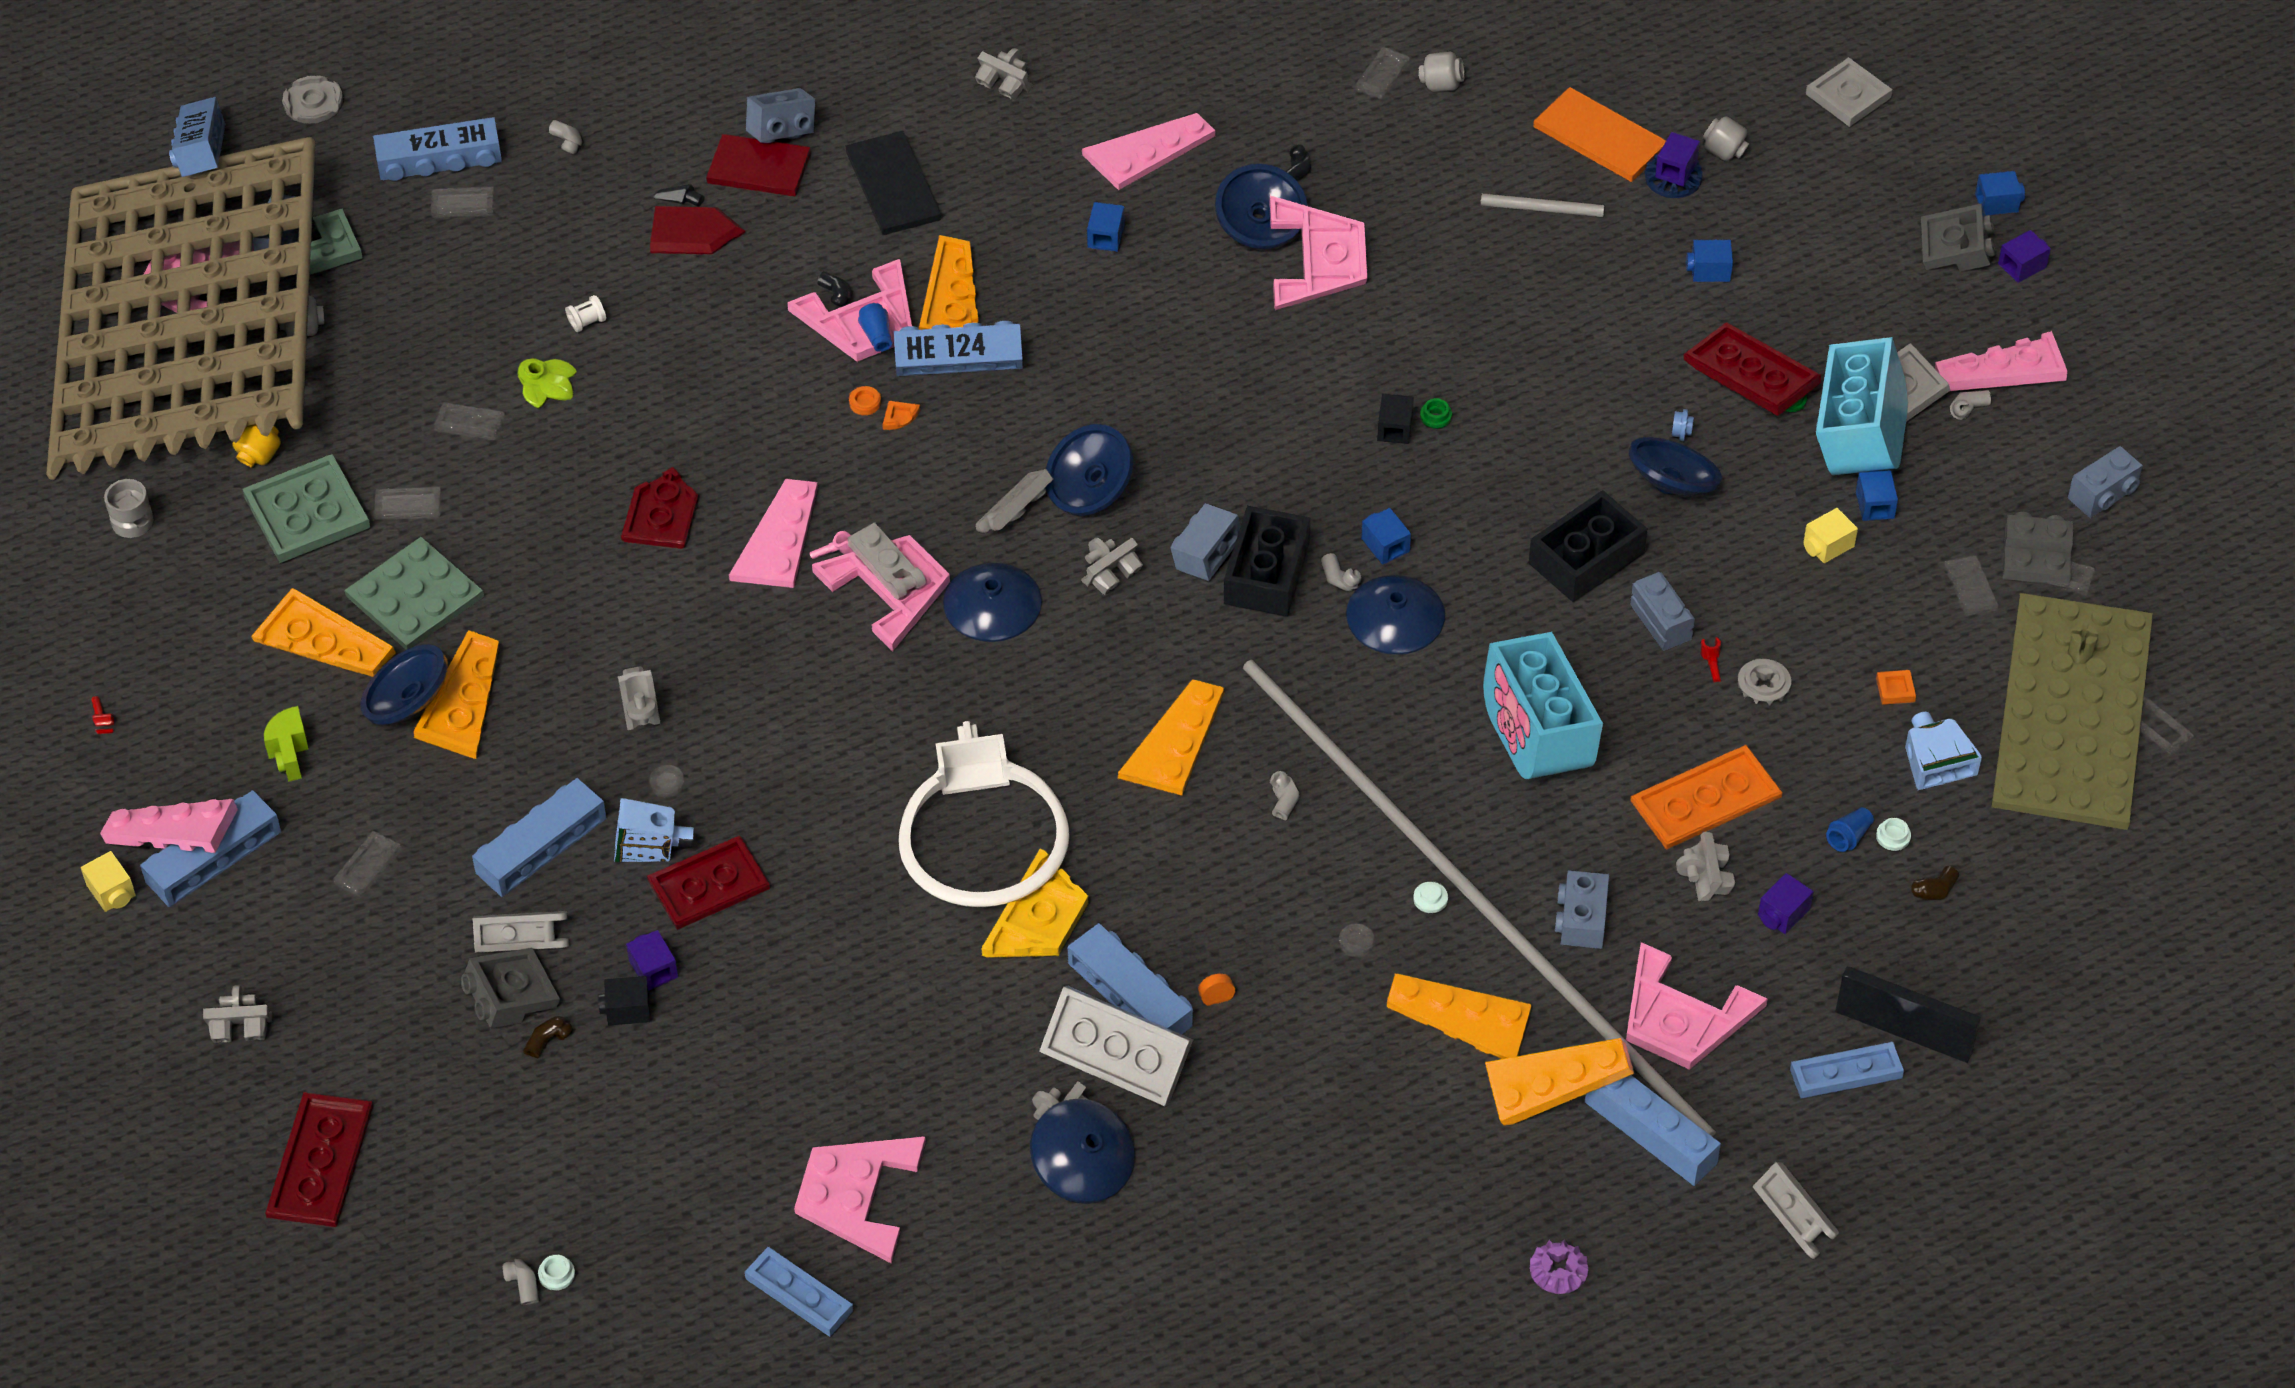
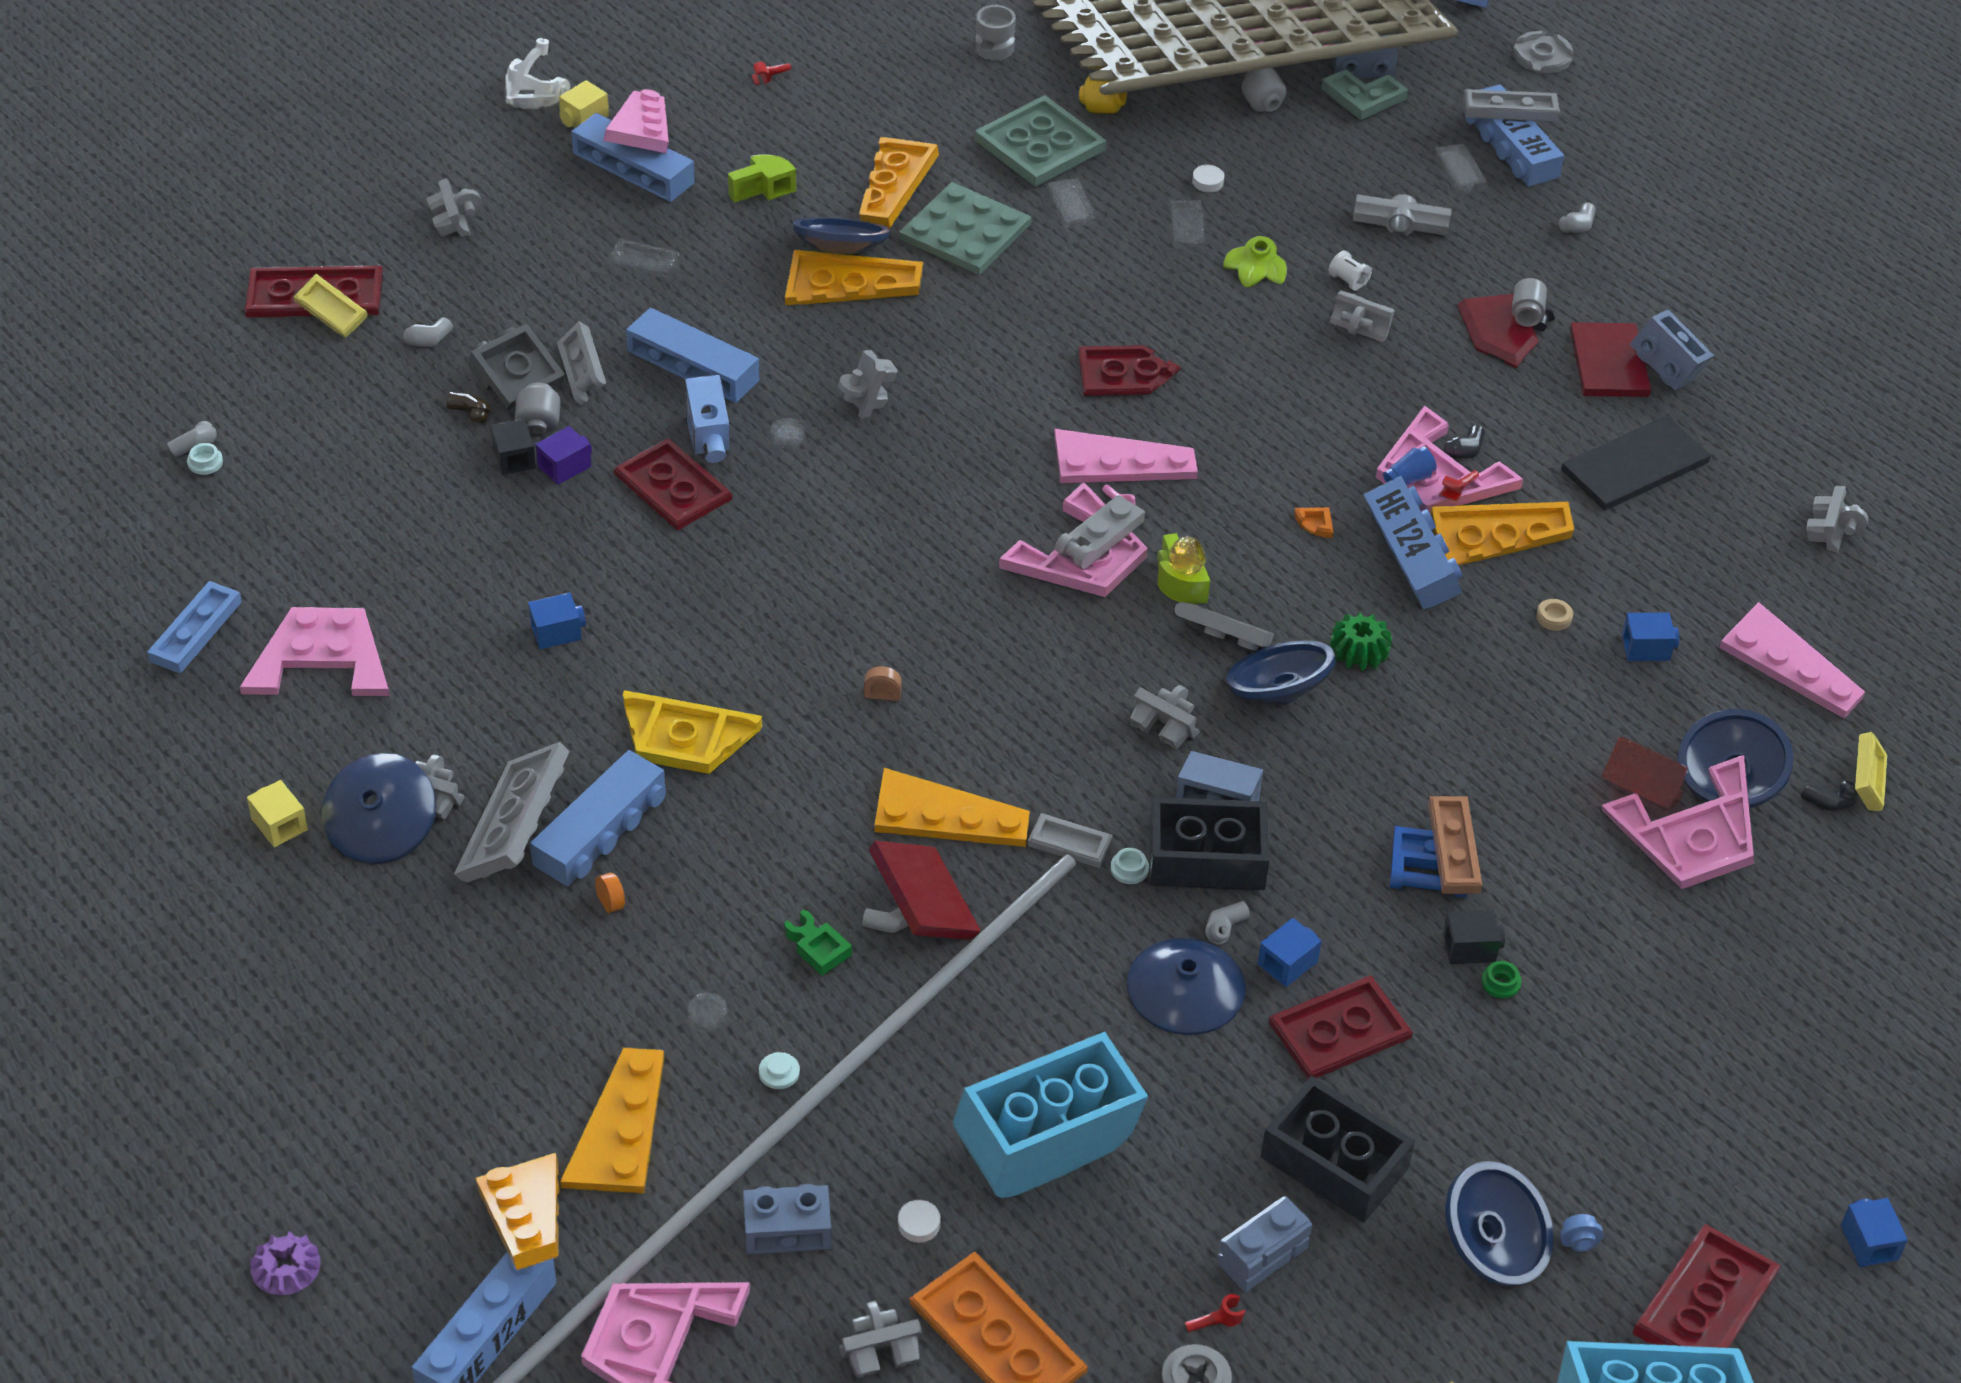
camera: 75 degrees right, 5 degrees down
(53, 928) = (517, 78): none -> white helmet
(361, 1139) = (330, 306): none -> light yellow tile
(408, 391) = (1208, 178): none -> white tile
(413, 134) = (1511, 105): none -> light grey tile
(427, 1059) = (427, 335): none -> light grey arm
(520, 258) = (1402, 214): none -> light grey piece
(577, 975) = (539, 407): none -> light grey head
(651, 320) = (1362, 316): none -> light grey hips
(683, 194) = (1529, 301): none -> light grey brick
(864, 400) = (1324, 491): orange tile -> none
(877, 992) = (556, 620): none -> blue brick
(903, 303) = (1453, 488): none -> red hand
(951, 518) = (1178, 586): none -> lime brick
(952, 498) = (1187, 556): none -> clear yellow piece
(976, 765) = (849, 637): white brick -> none
(992, 613) = (1090, 635): dark blue dish -> none
(1022, 753) = (882, 684): none -> nougat tile
(1056, 283) = (1554, 614): none -> tan tile
(1059, 413) = (1360, 641): none -> green gear
(1064, 1234) = (277, 813): none -> light yellow brick
(1227, 659) = (1065, 837): none -> light grey tile
(1261, 266) = (1645, 772): none -> clear red panel
(1267, 624) = (1129, 866): none -> light aqua plate
(1271, 762) = (924, 890): none -> dark red tile
(1283, 132) = (1871, 772): none -> light yellow tile
(1299, 422) = (1414, 849): none -> blue plate
(1304, 403) = (1455, 845): none -> nougat tile
(1304, 847) = (819, 946): none -> green plate
(1459, 525) = (1340, 1027): none -> dark red tile
(1542, 205) = (1890, 1045): light grey piece -> none
(1594, 828) = (919, 1221): none -> white tile

